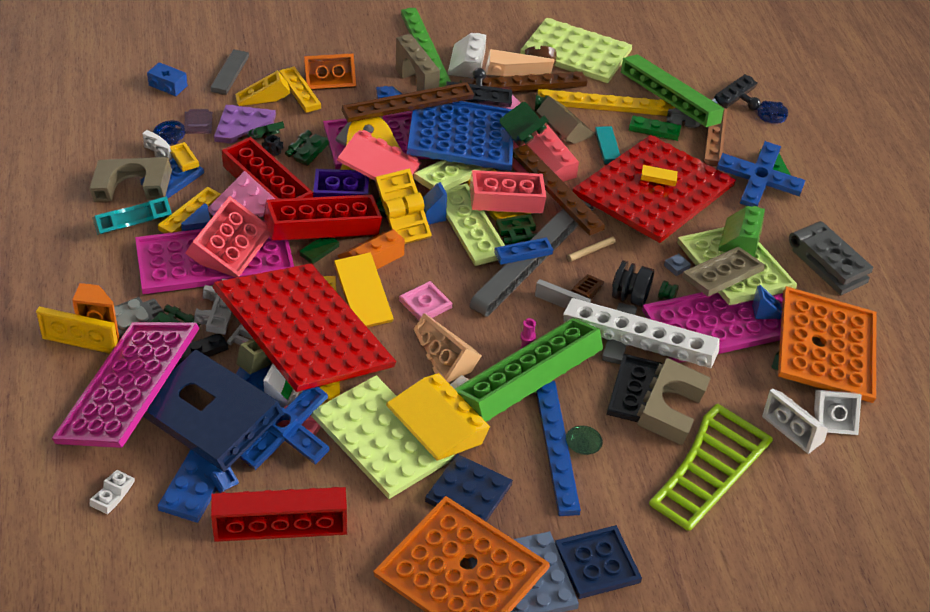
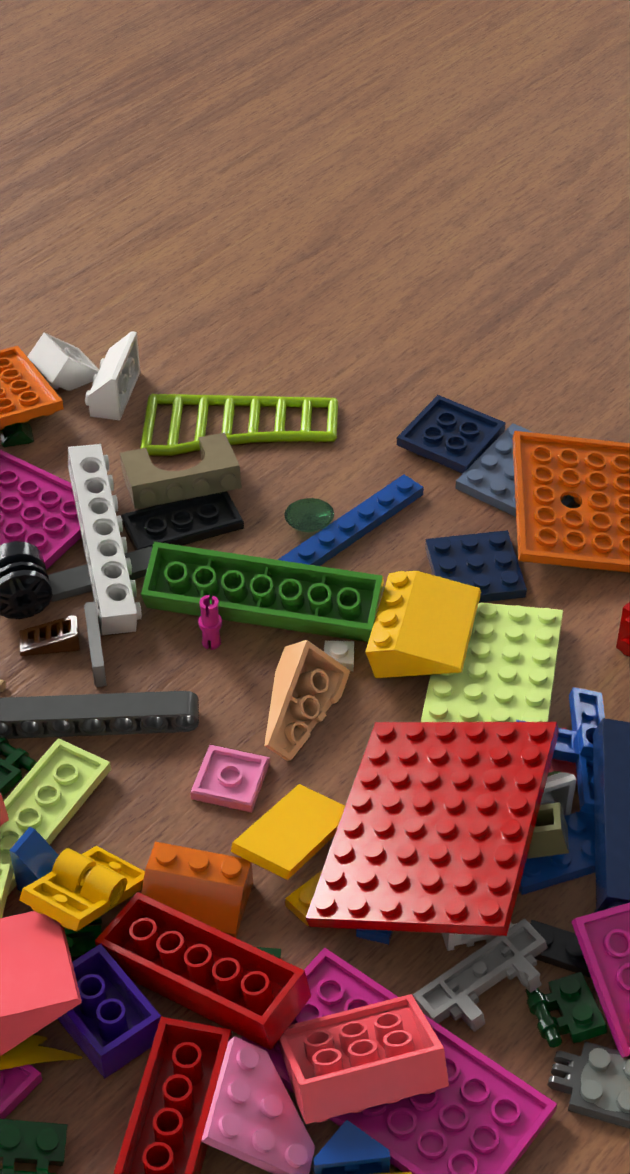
camera: 125 degrees left, 0 degrees up
(523, 251) = (54, 708): blue tile -> none

